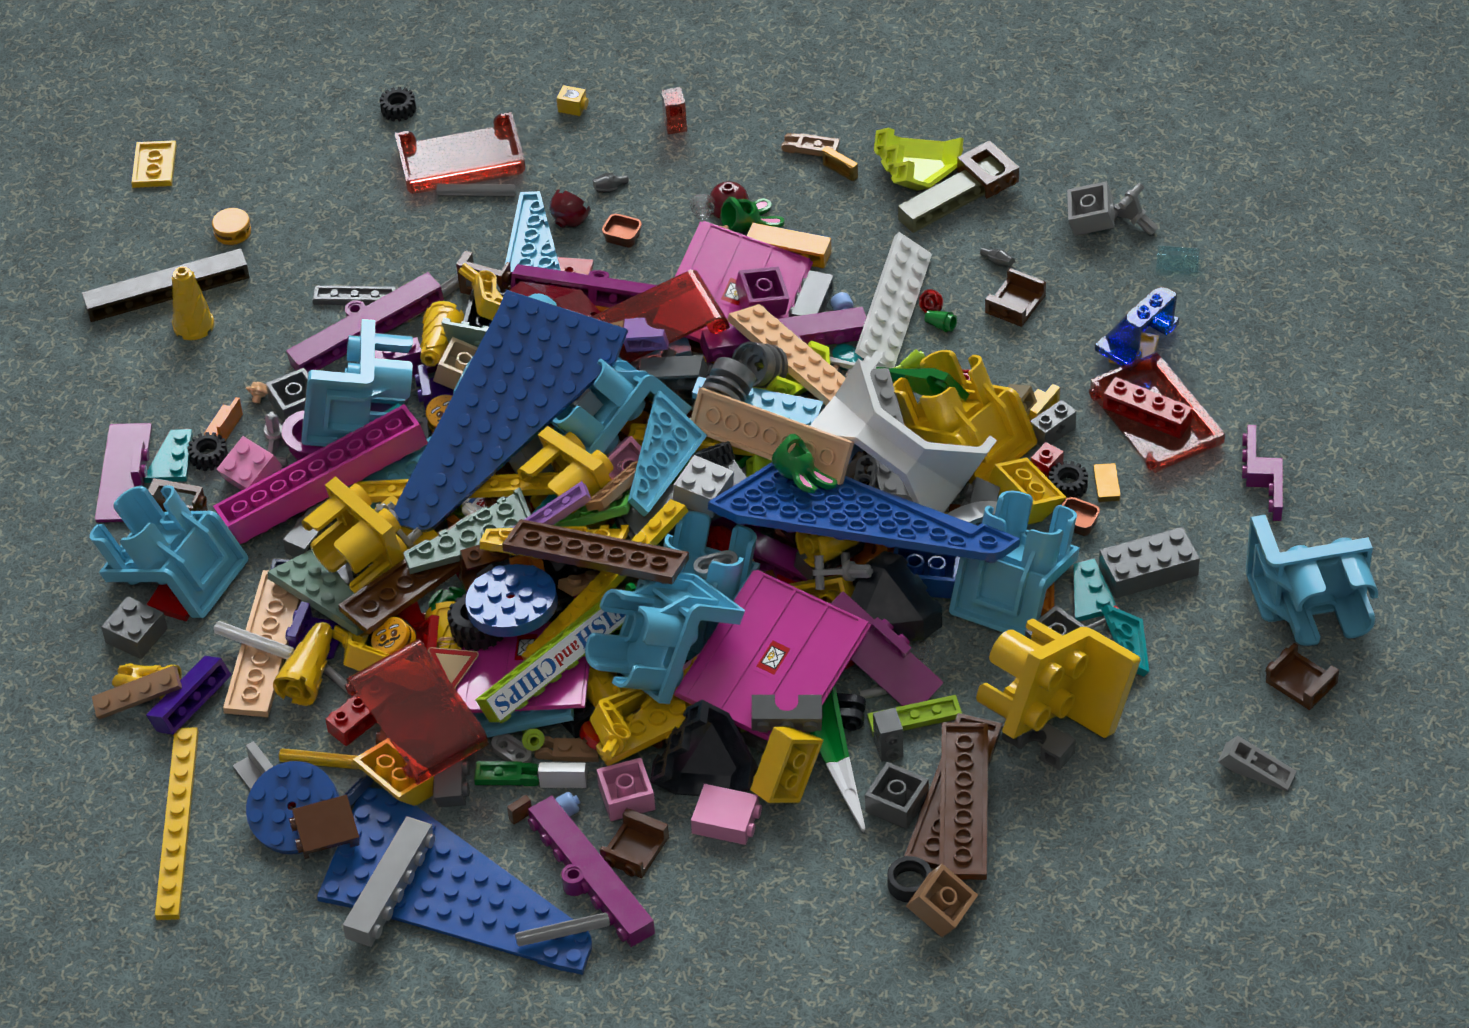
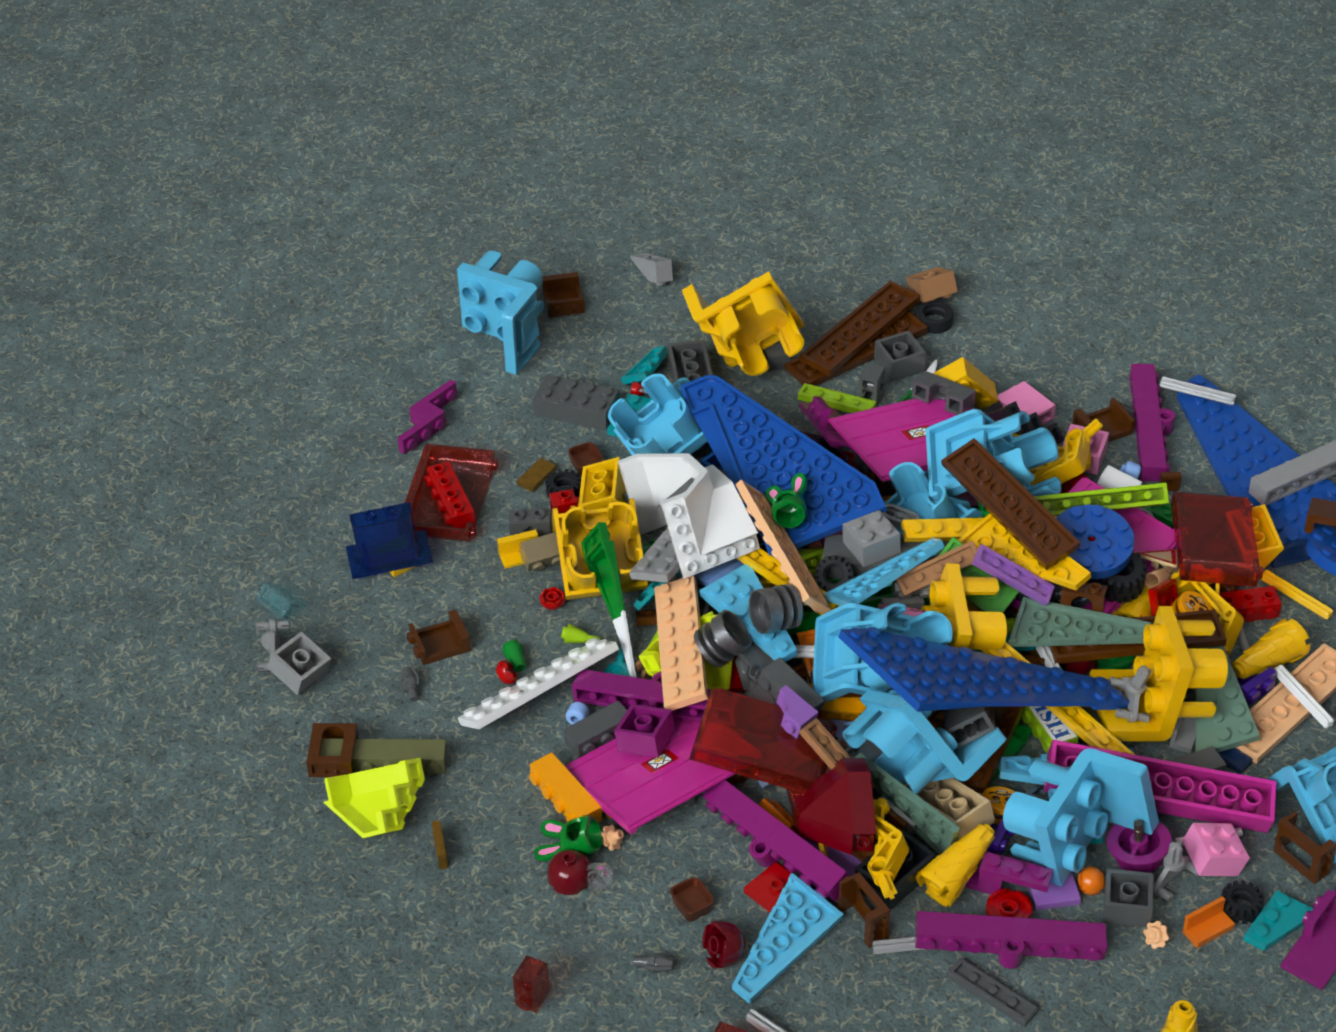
camera: 145 degrees left, 5 degrees down
(808, 144) = (440, 883): medium nougat hinge -> none

